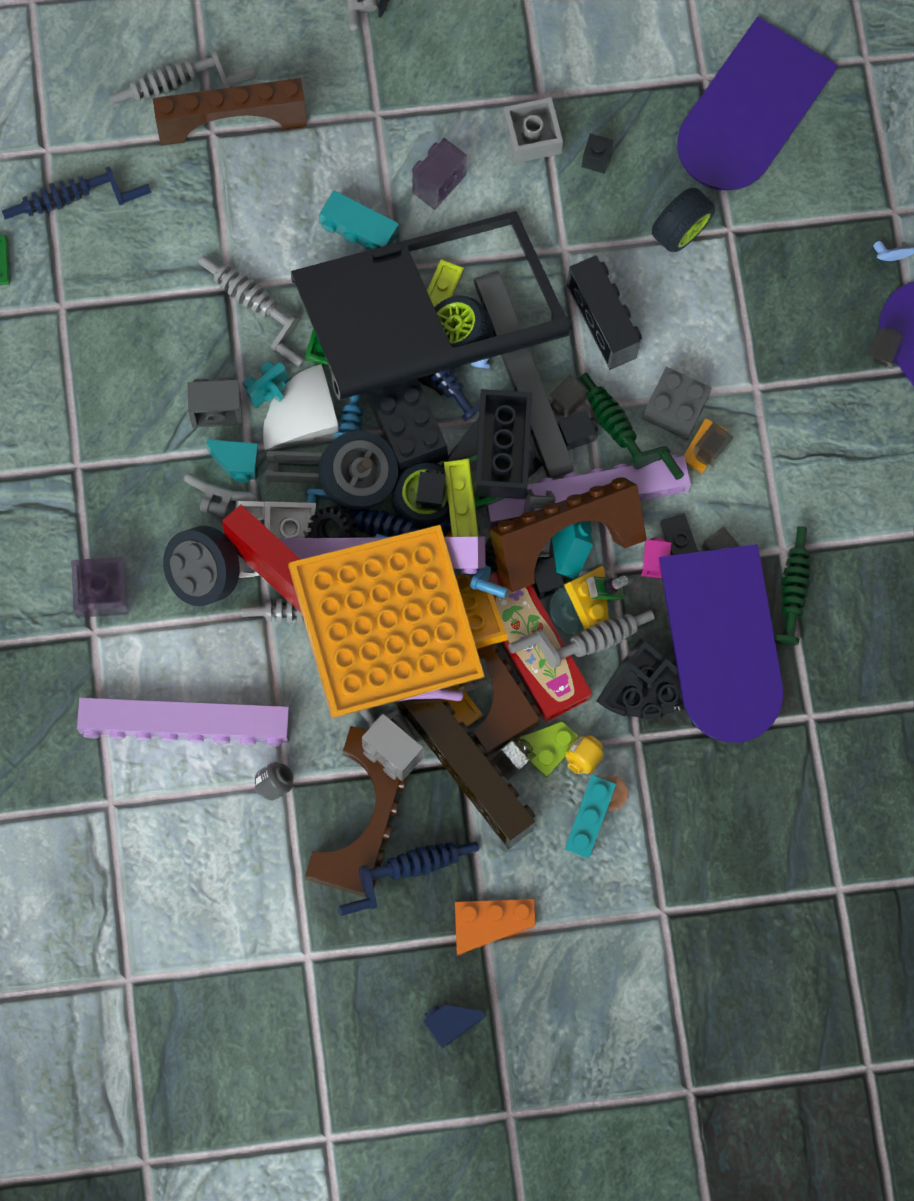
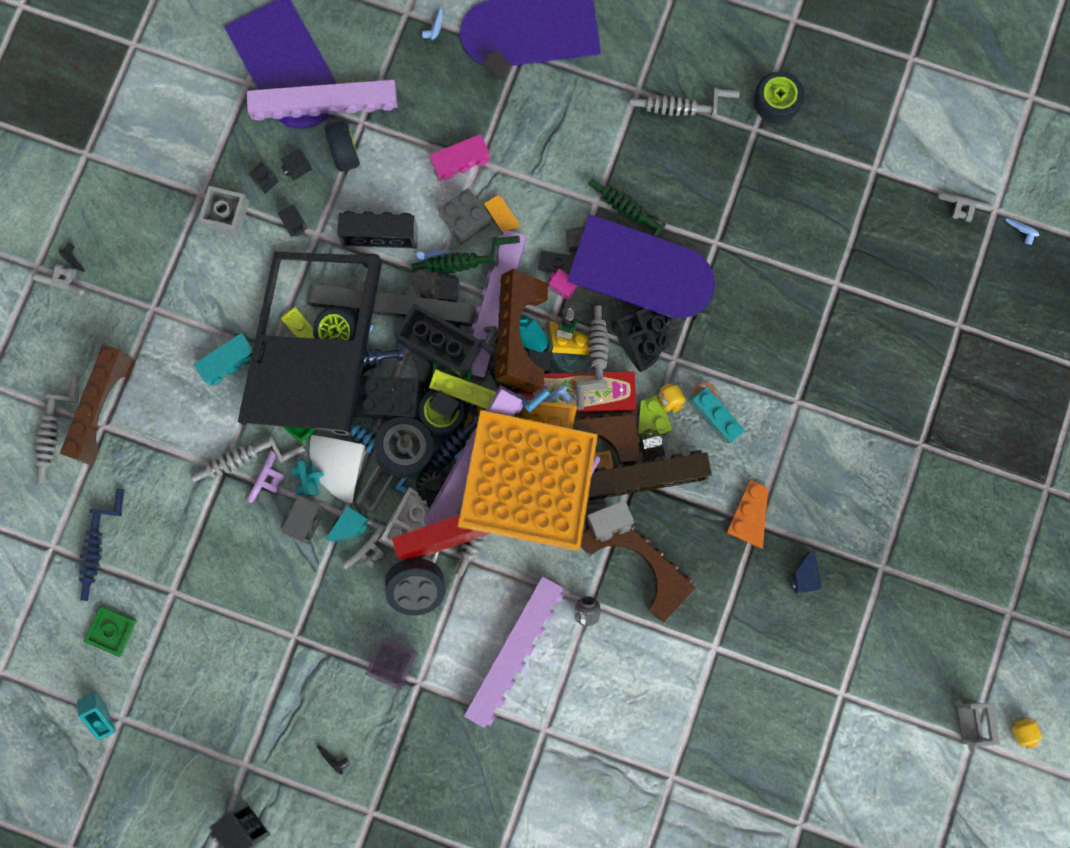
camera: 55 degrees left, 5 degrees up
(244, 335) = (261, 480): none -> lavender piece
(412, 863) = (690, 546): dark blue piece -> none
(438, 173) = (220, 288): clear purple brick -> none
(520, 617) = (561, 391): none -> light blue bar
(563, 212) = (292, 221): none -> black brick
(600, 380) = (422, 257): none -> light blue bar
(634, 181) = (295, 164): none -> black brick
(712, 445) = (506, 208): clear smoke brick -> none
(729, 170) = (322, 99): none -> lavender brick
(746, 362) = (460, 157): none -> dark pink brick

